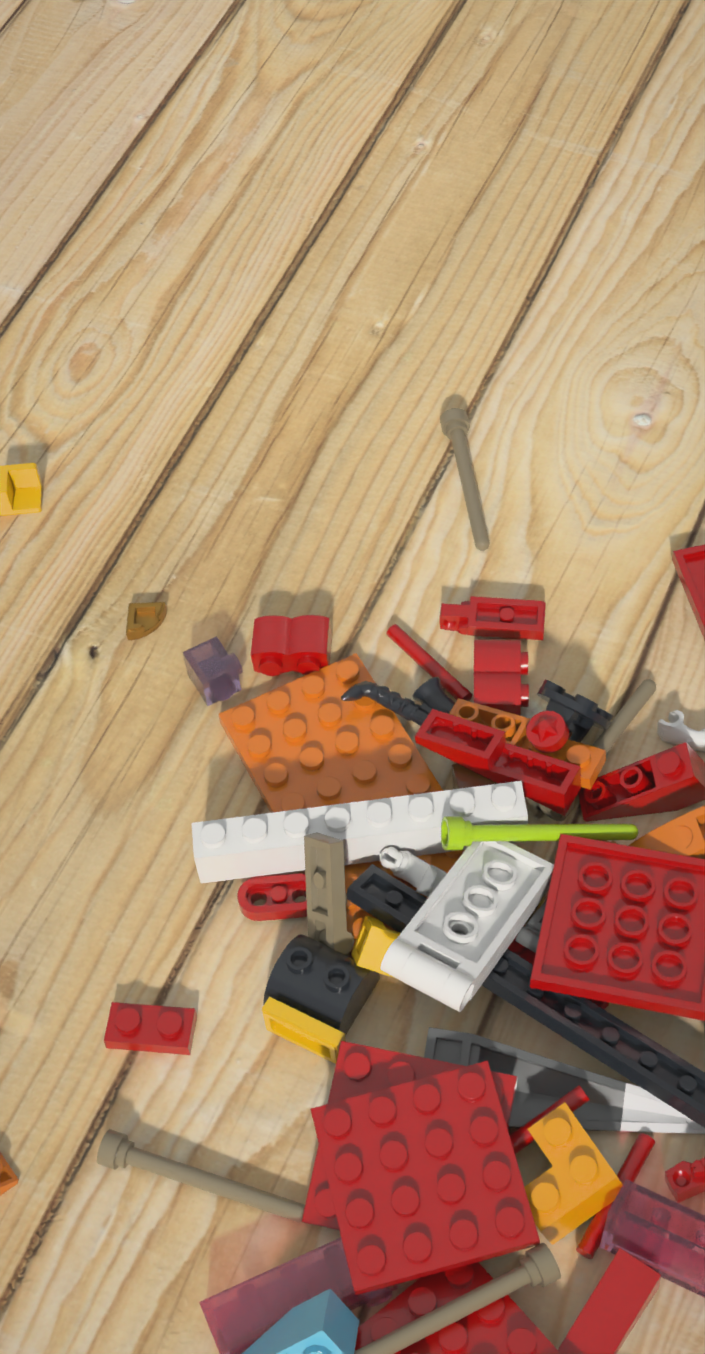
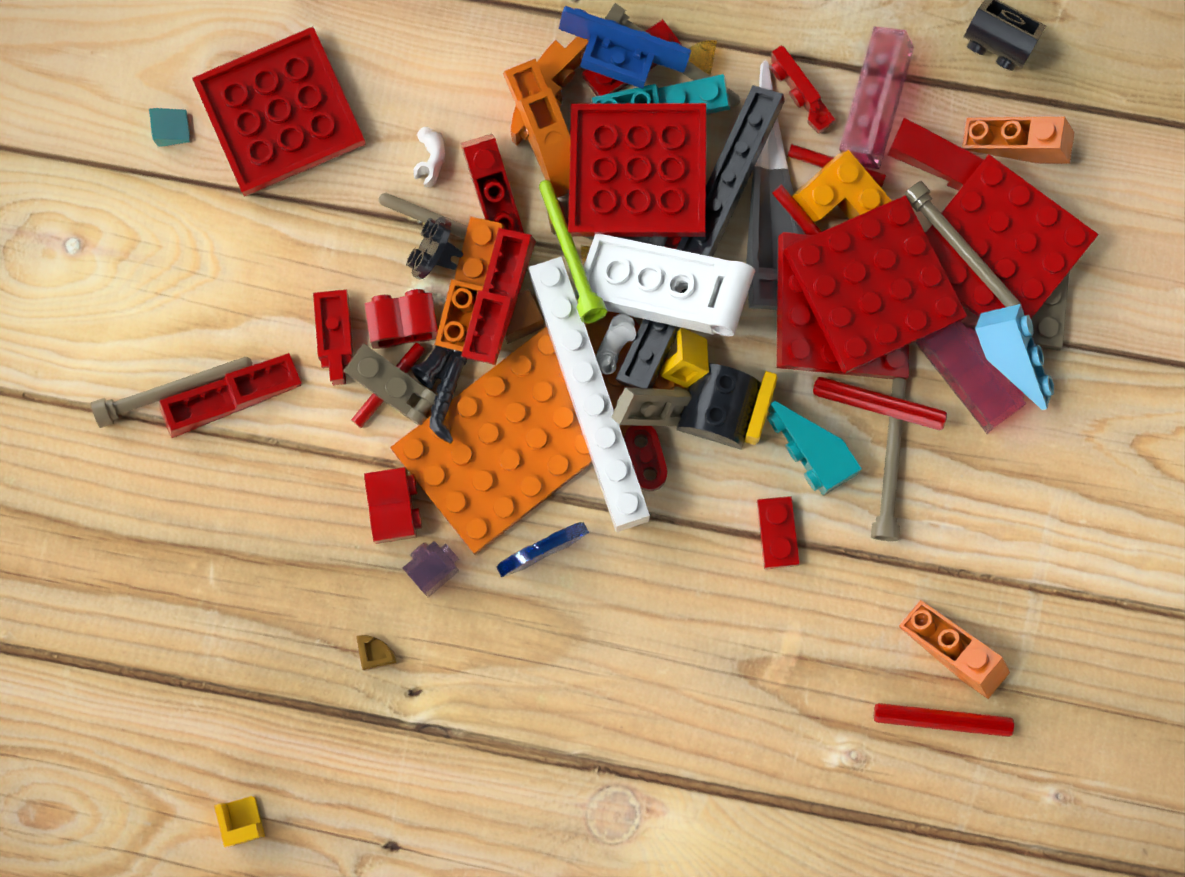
camera: 105 degrees left, 25 degrees up
(200, 772) = (542, 549): none -> clear blue tile
(232, 1088) = (821, 452): none -> teal slope
(268, 1178) = (880, 403): none -> red axle
(427, 654) = (389, 383): none -> dark tan plate
(450, 525) = (227, 396): none -> red slope
(547, 731) = (467, 259): red tile -> none

